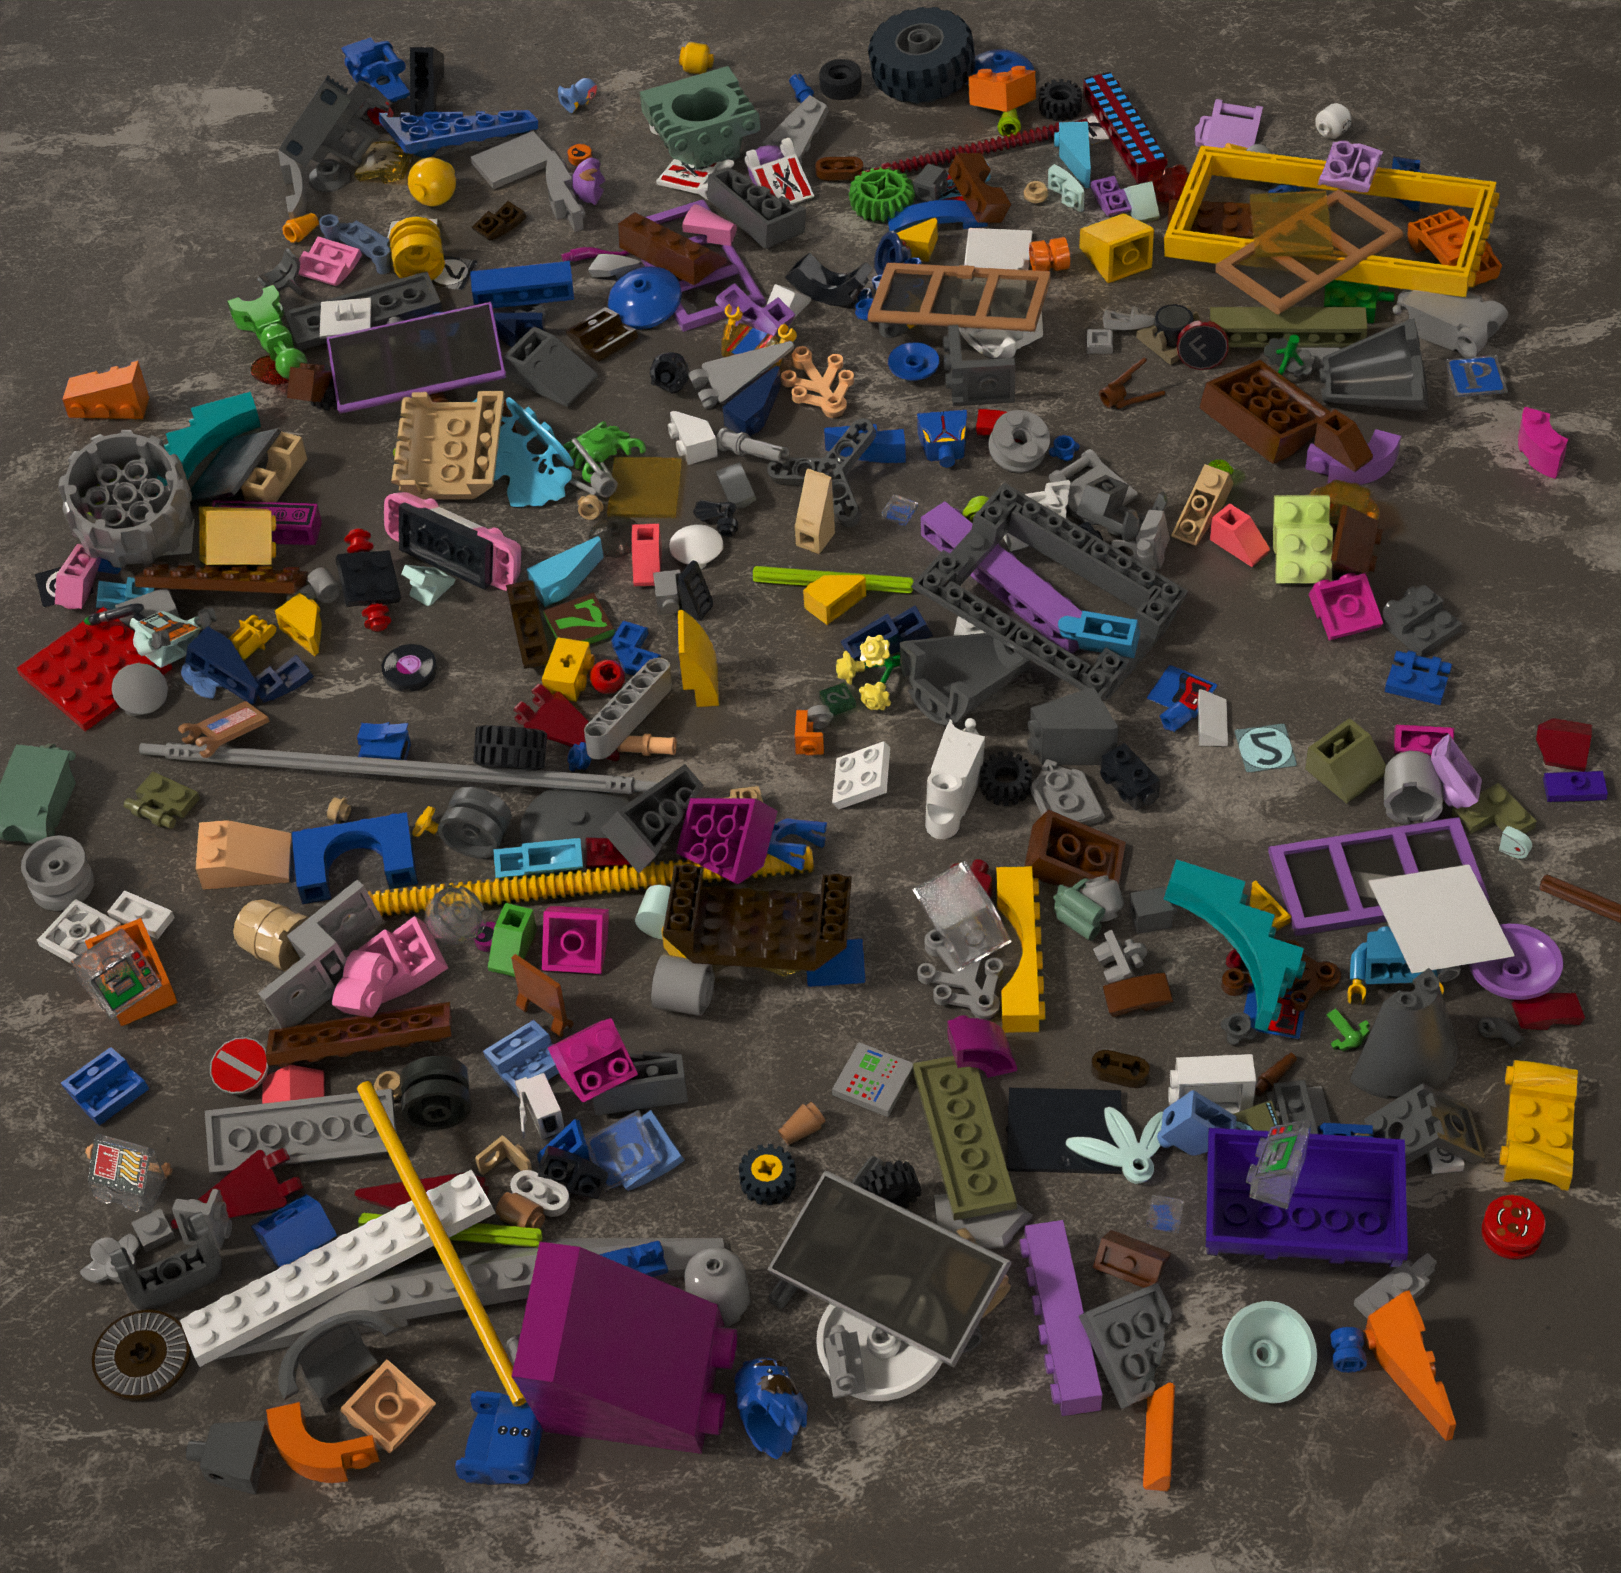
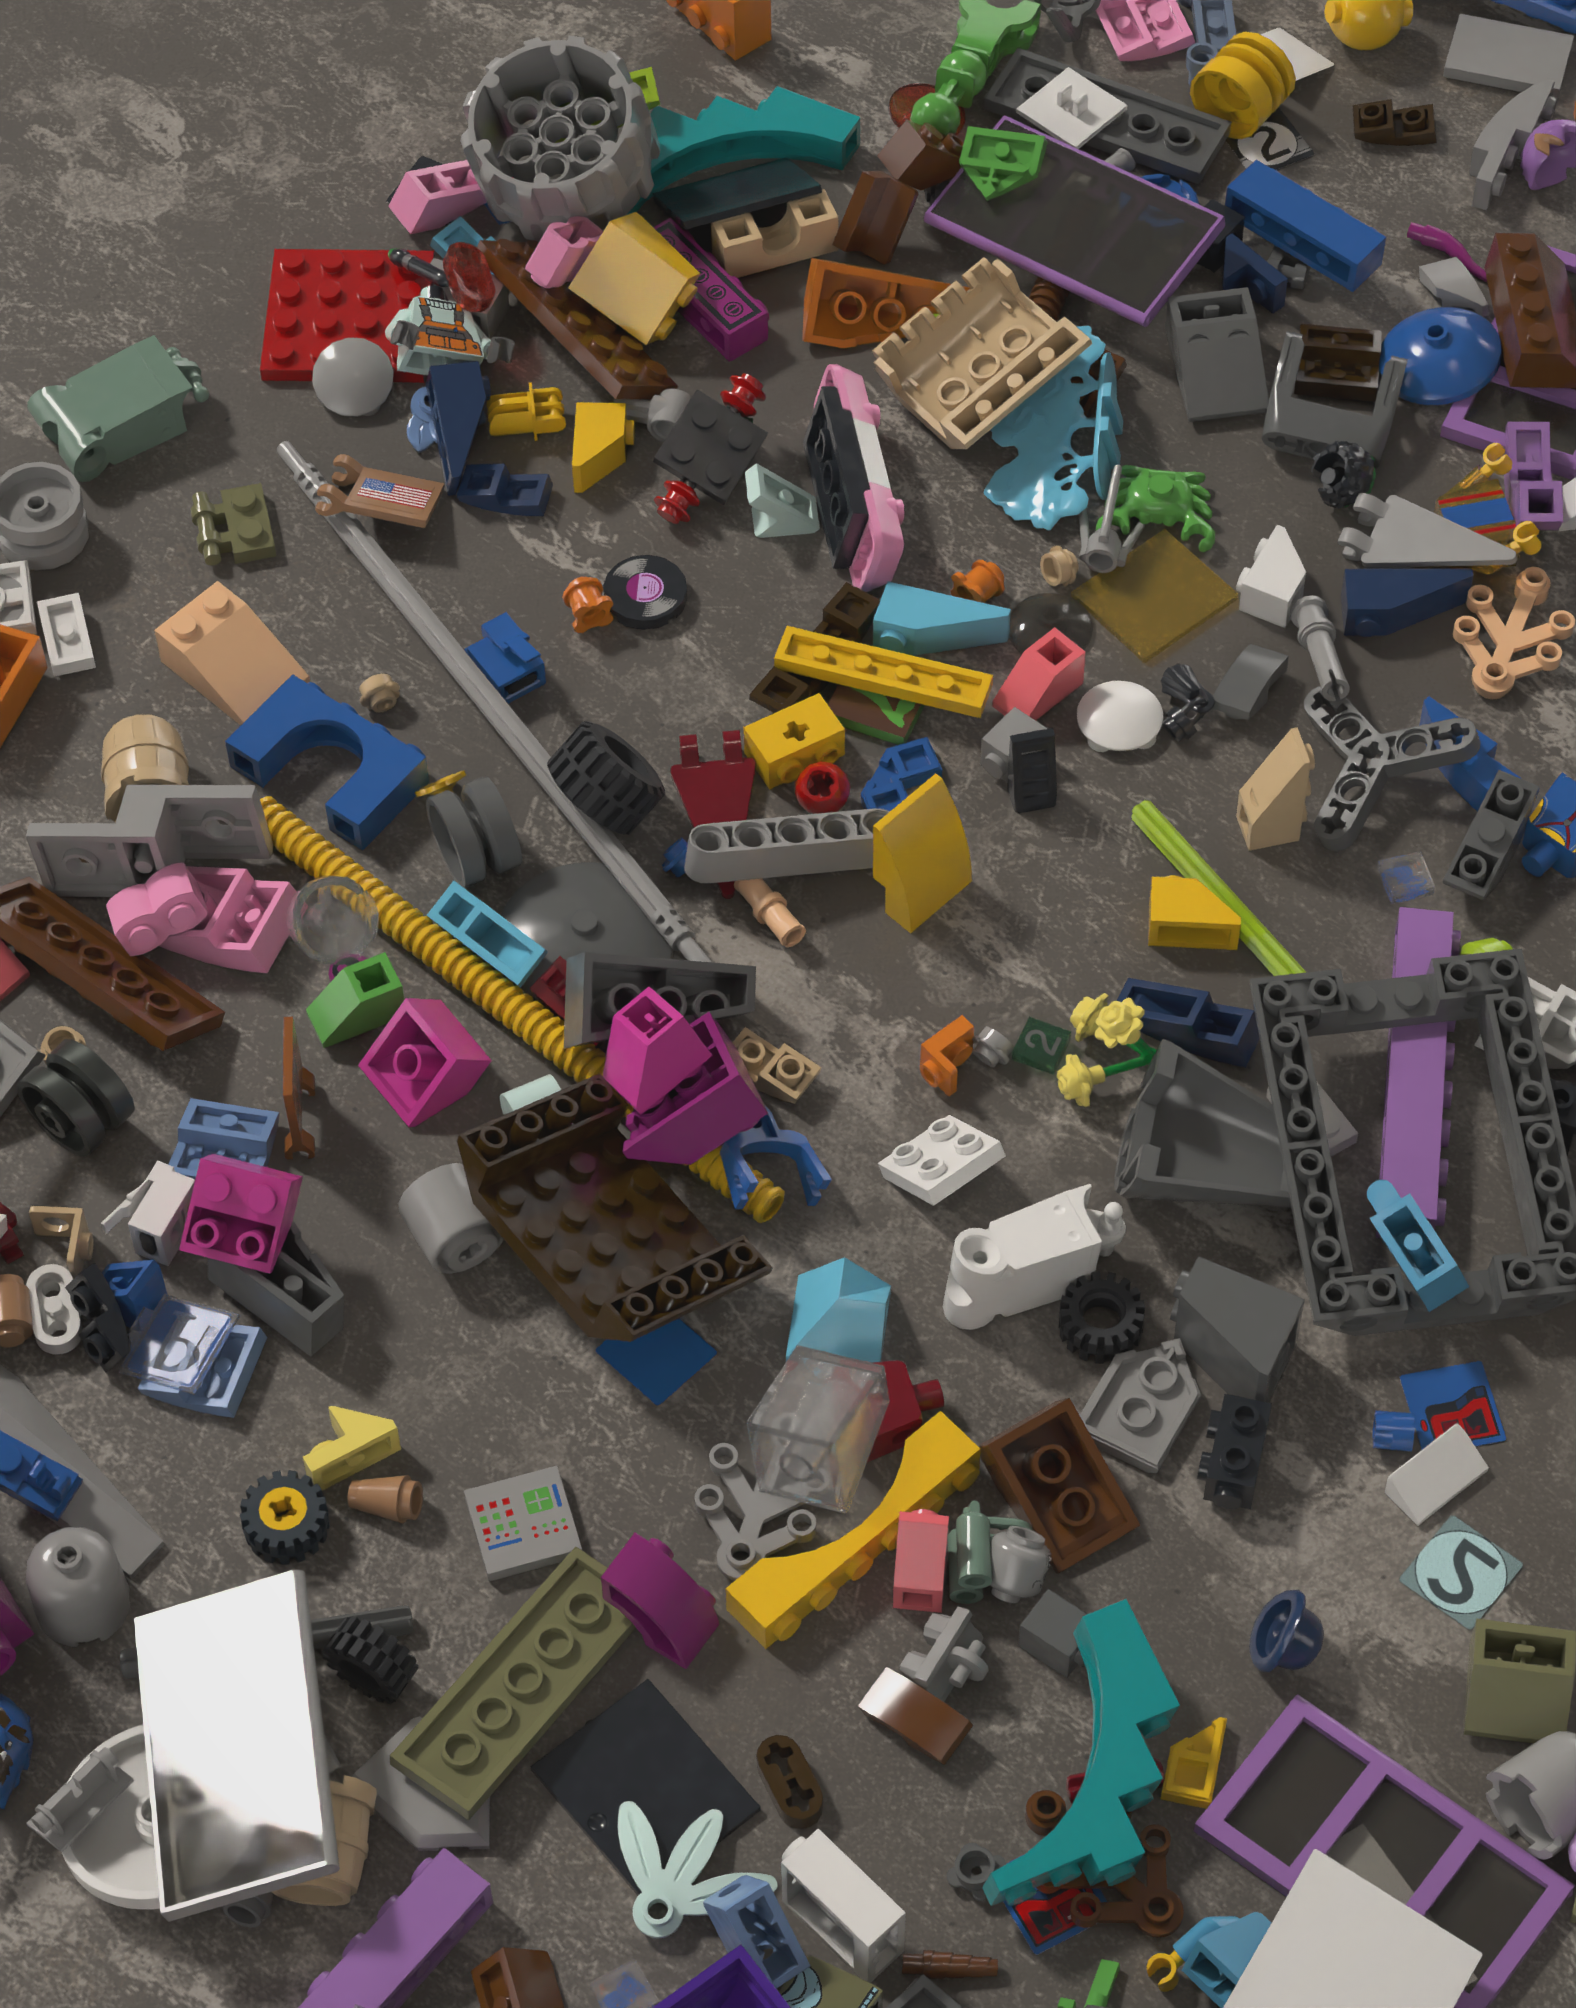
camera: 45 degrees right, 5 degrees up
(151, 596) = (469, 277): none -> clear red plate
(190, 547) = (562, 251): none -> bright pink brick
(317, 426) = (876, 216): none -> reddish brown panel
(350, 356) = (1001, 159): none -> bright green slope
(356, 469) = (861, 304): none -> orange wedge
(390, 692) = (588, 604): none -> orange brick
(564, 538) = (979, 583): none -> orange brick
(572, 607) = (883, 671): none -> yellow plate
(632, 364) = (1309, 427): none -> dark grey connector
(694, 829) = (651, 1051): none -> dark pink slope
(756, 1114) = (360, 1443): none -> light yellow slope
(893, 874) = (840, 1311): none -> medium azure slope
(920, 460) = (1492, 836): none -> dark grey slope
(1065, 931) = (920, 1561): none -> coral slope
(1236, 826) = (1285, 1634): none -> dark blue hat

